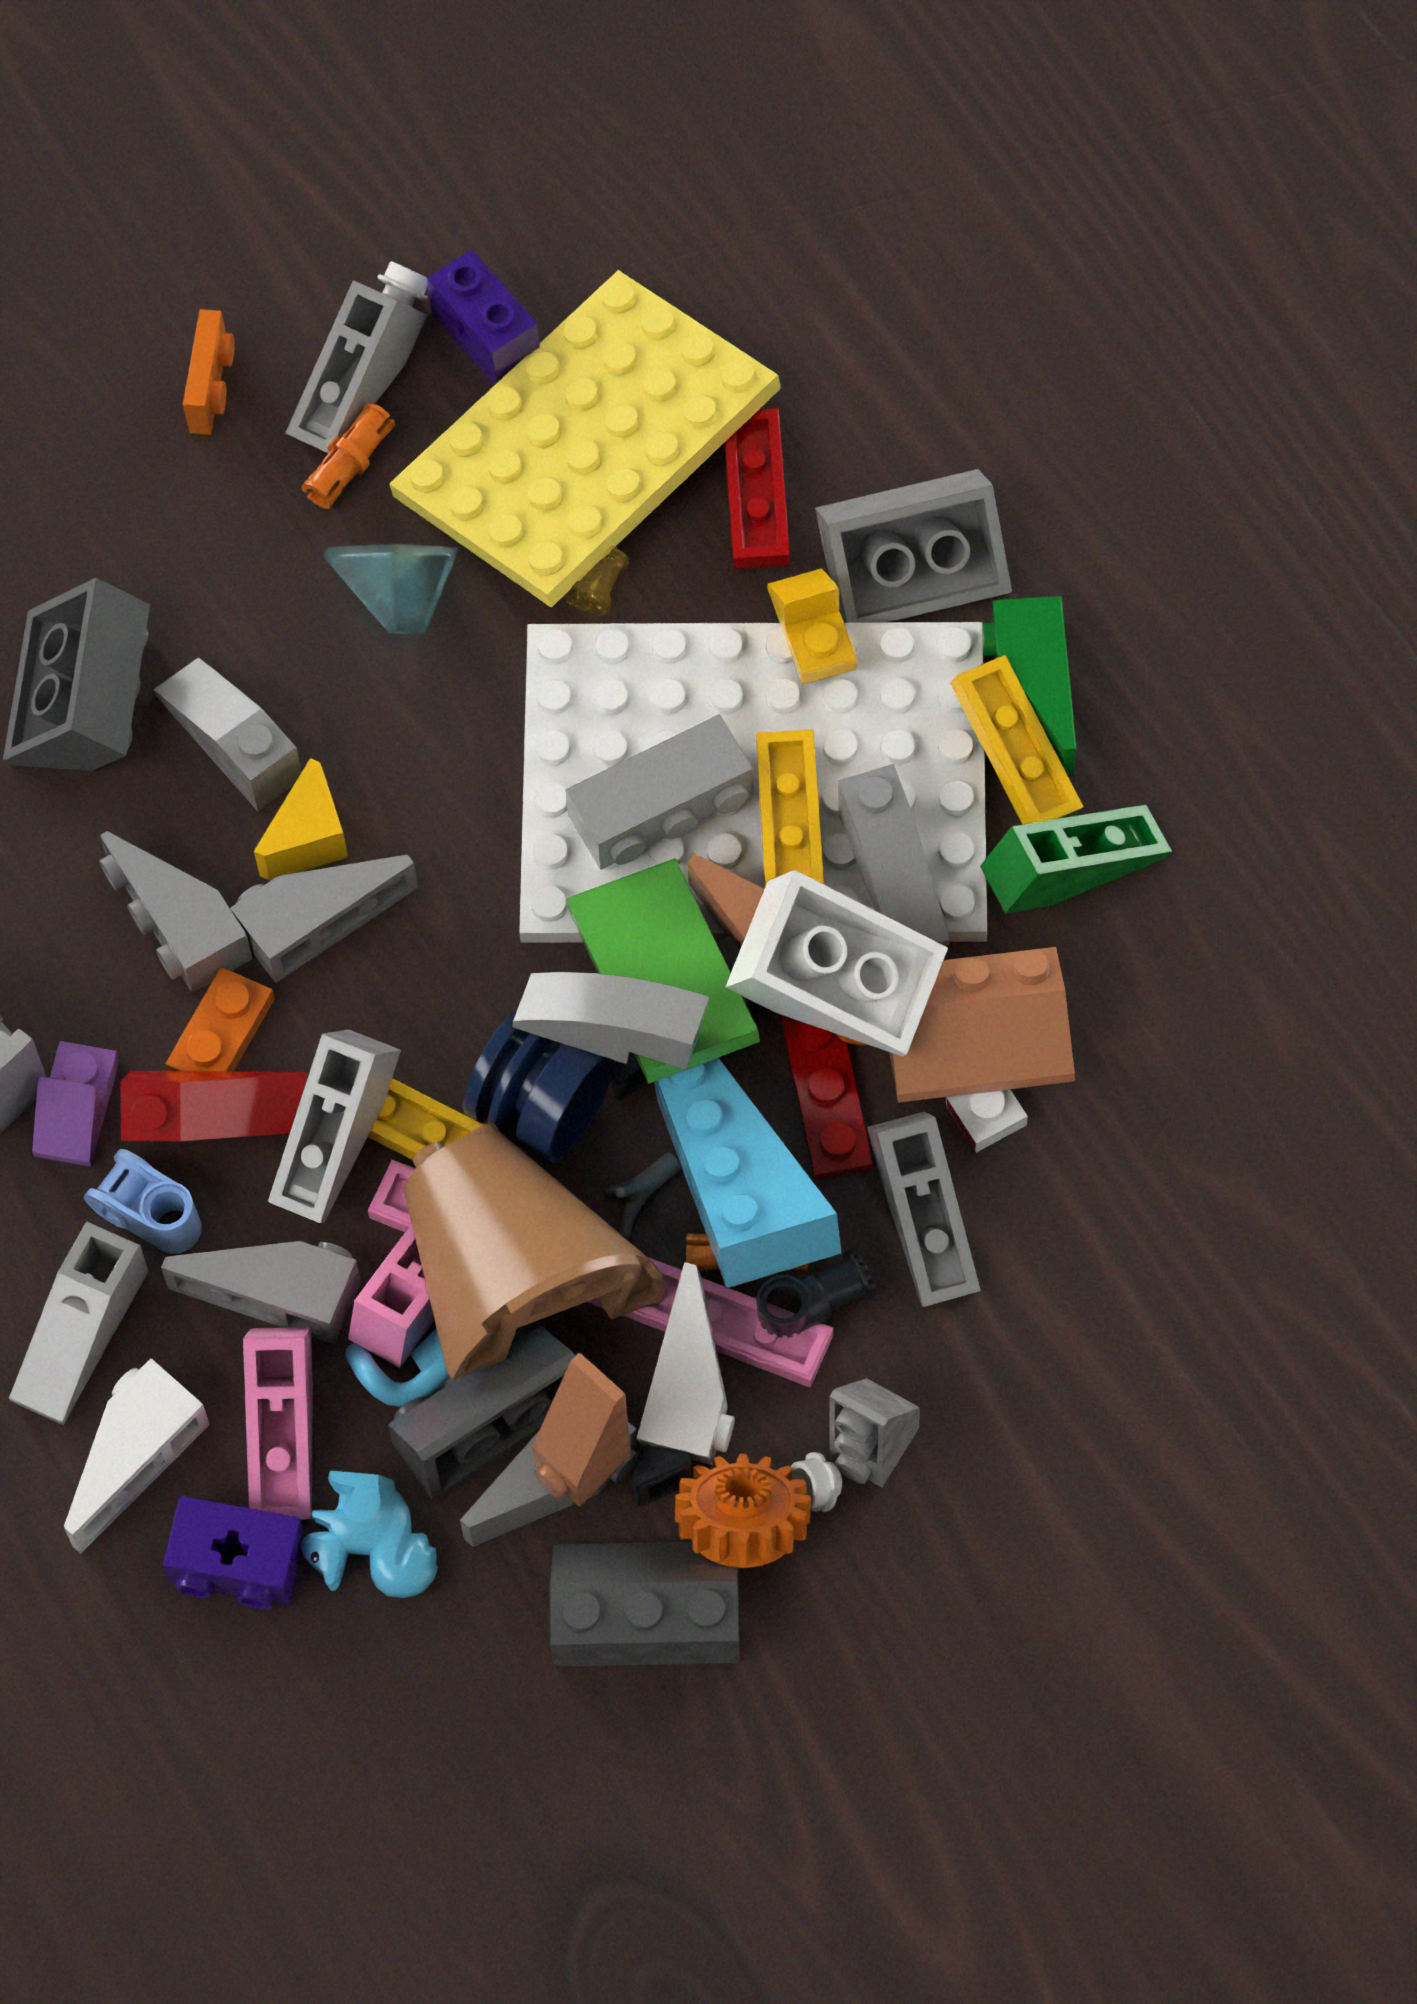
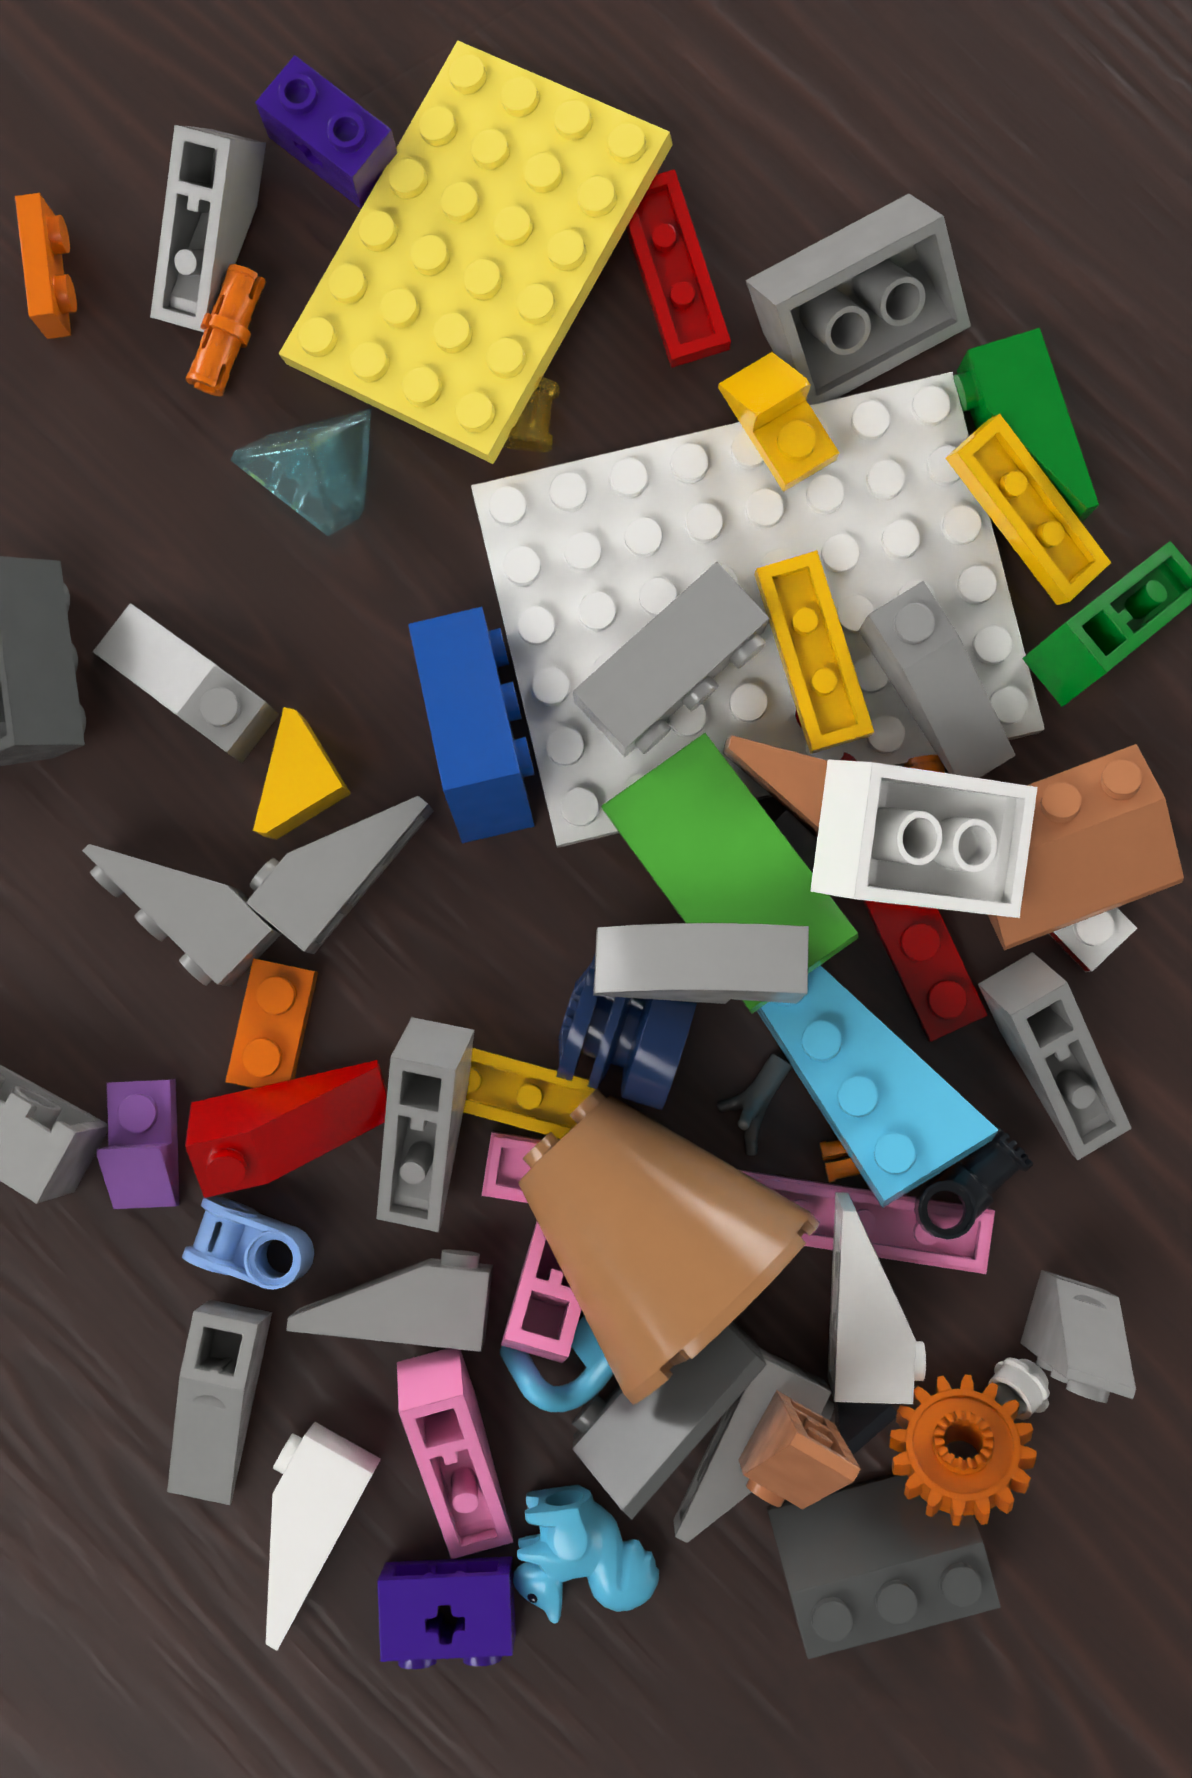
camera: 10 degrees left, 20 degrees up
(403, 284) = (230, 111): white plate -> none
(471, 816) = (471, 723): none -> blue wedge

